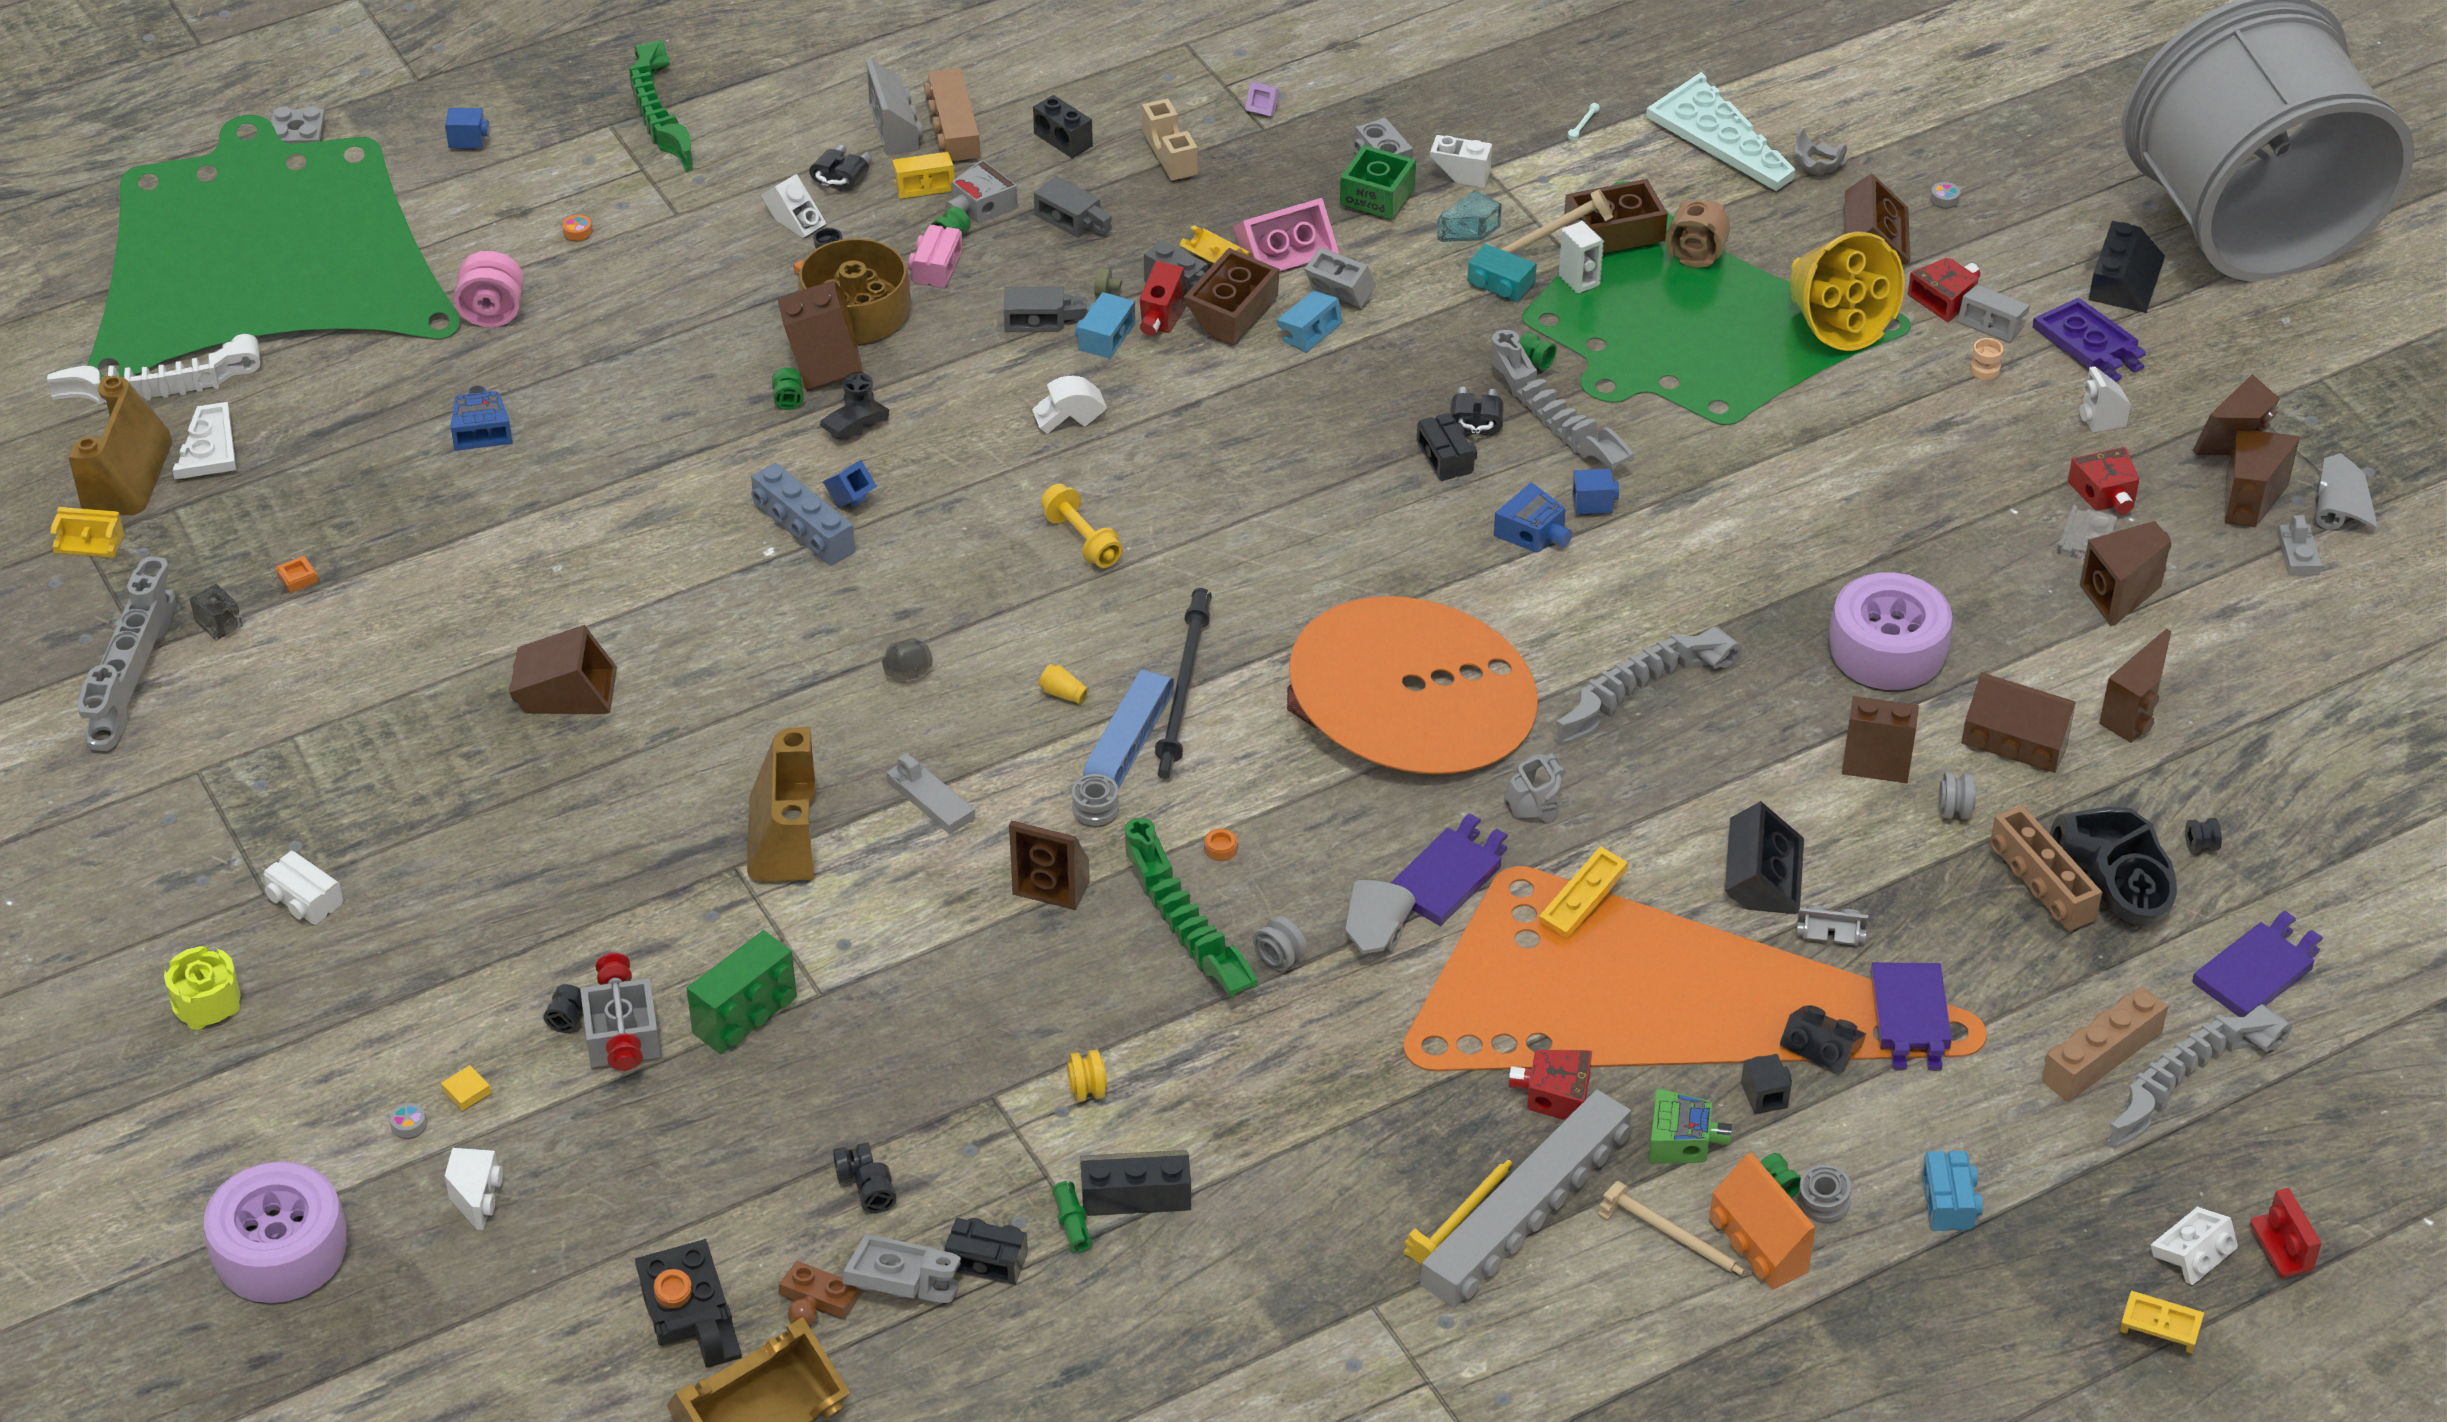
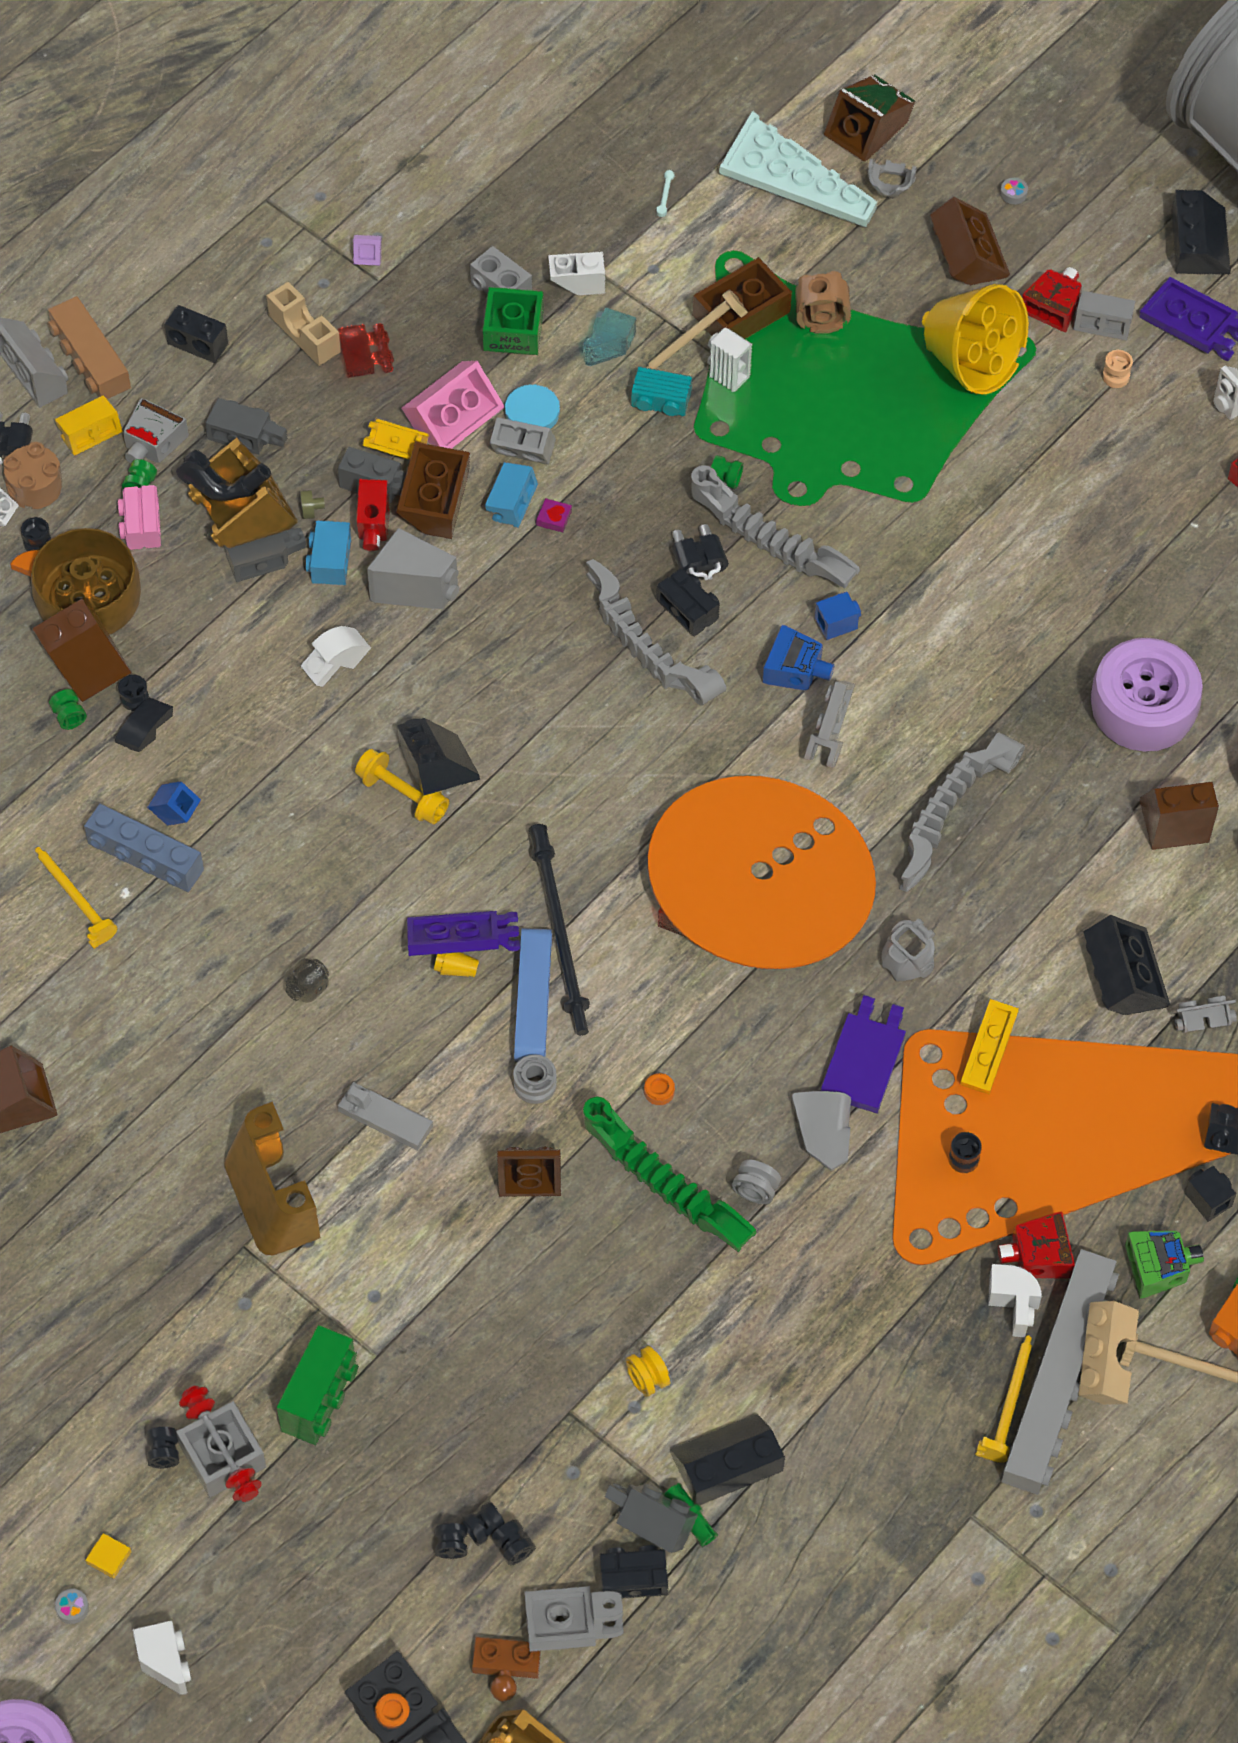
camera: 20 degrees left, 15 degrees up
(727, 571) = (103, 929): none -> yellow piece
(812, 1168) = (451, 1541): none -> black wheel
(849, 199) = (33, 476): none -> medium nougat brick
(1005, 226) = (199, 473): none -> black piece
(1030, 1201) = (653, 1515): none -> dark grey hinge
(1037, 255) = (247, 517): none -> pearl gold windscreen
(1081, 658) = (461, 933): none -> dark purple tile
(1124, 502) = (435, 756): none -> black slope
(1175, 355) = (413, 574): none -> light grey slope
(1213, 178) = (357, 352): none -> clear red plate
(1345, 349) = (554, 515): none -> magenta tile
(1369, 440) = (700, 684): none -> light grey piece
(1372, 253) = (533, 406): none -> medium azure tile
(1512, 1113) = (1017, 1289): none -> white brick
(1514, 977) = (962, 1146): none -> black wheel
(1543, 572) = (831, 722): none -> light grey plate
(1567, 1208) = (1101, 1374): none -> tan arch
(1818, 99) = (868, 116): none -> reddish brown slope

